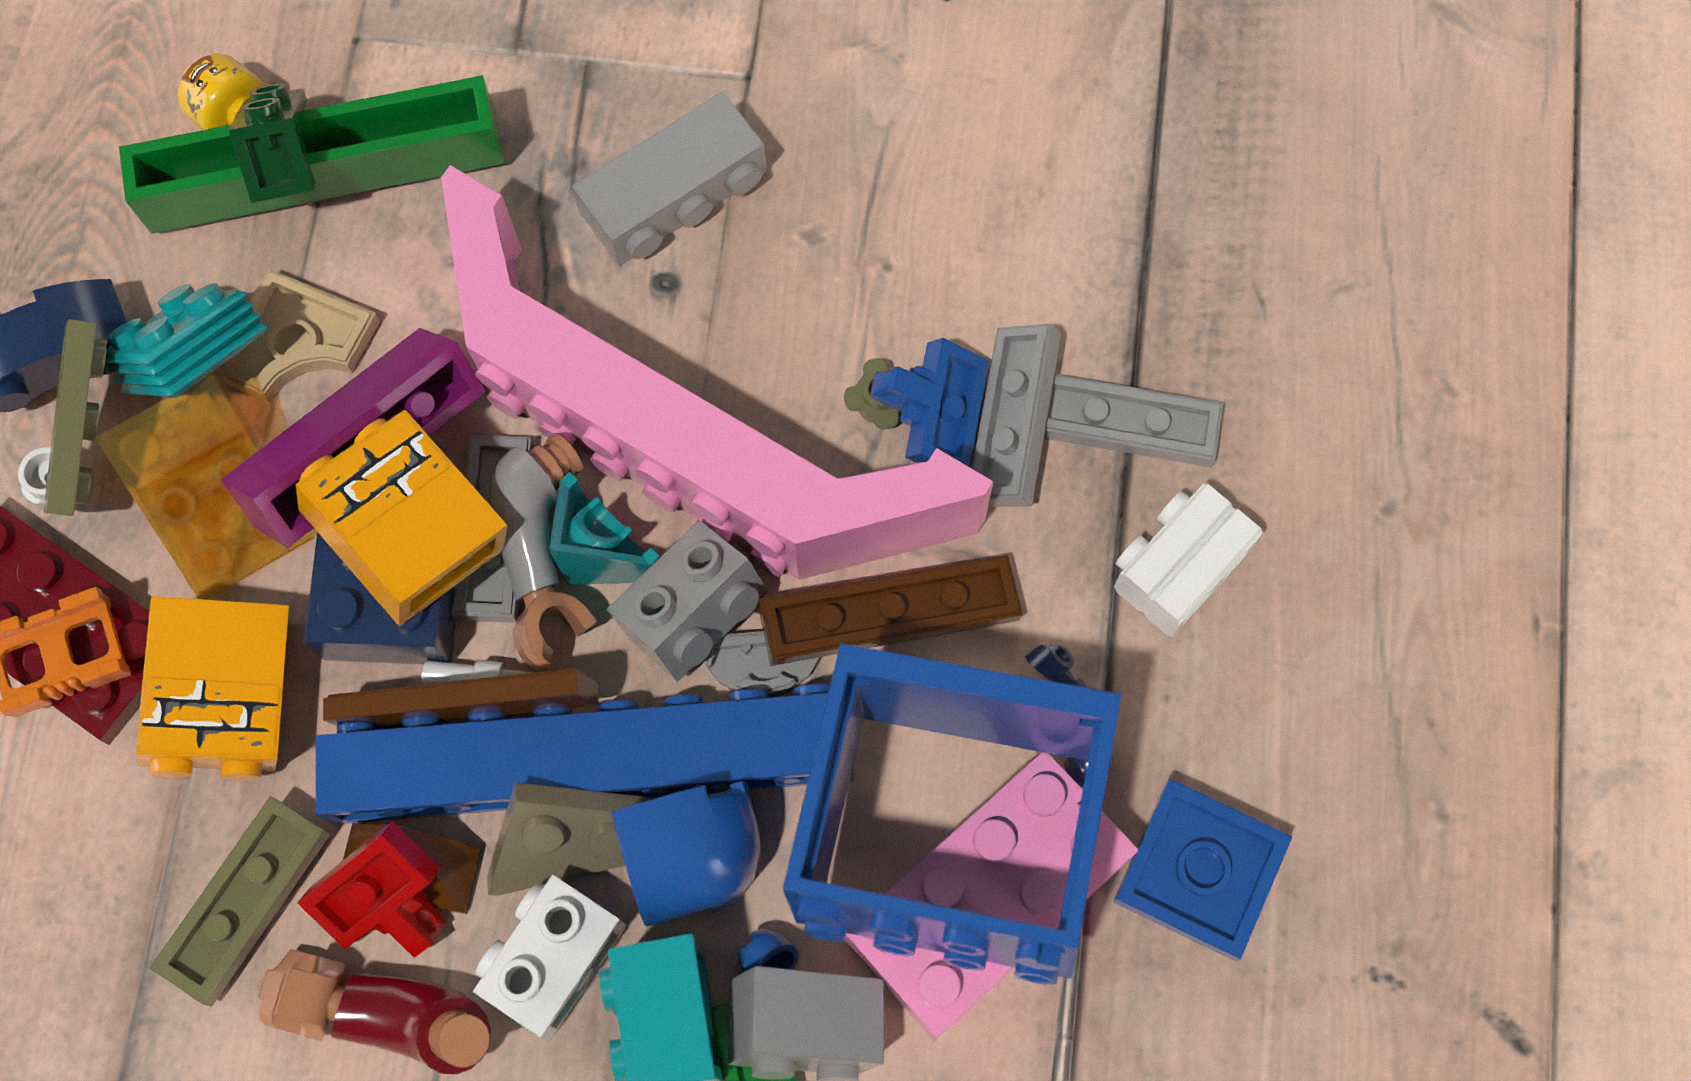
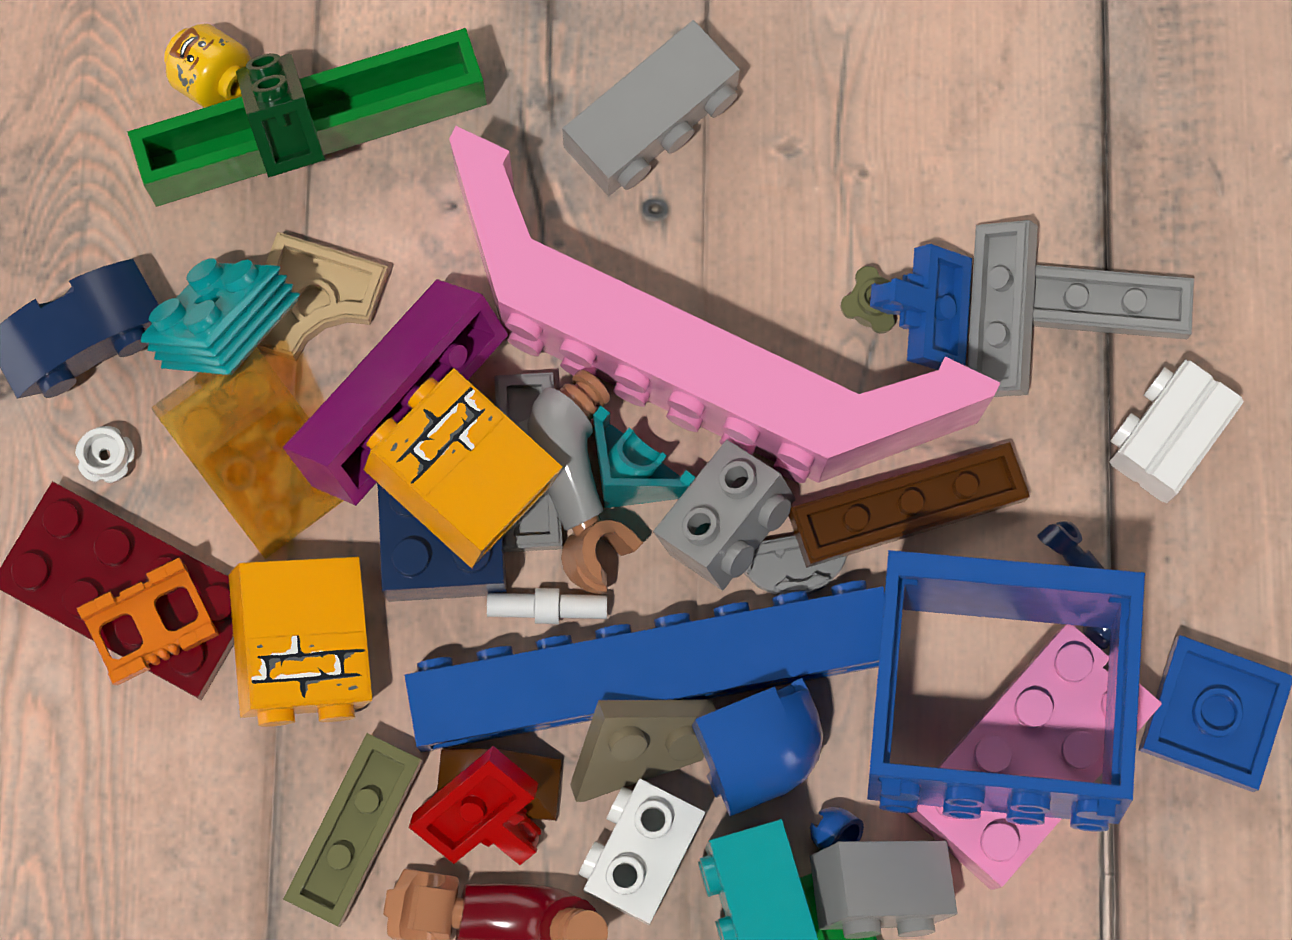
camera: 10 degrees left, 5 degrees up
(73, 418) = (130, 402): olive plate -> none
(463, 698) = (533, 627): reddish brown tile -> none

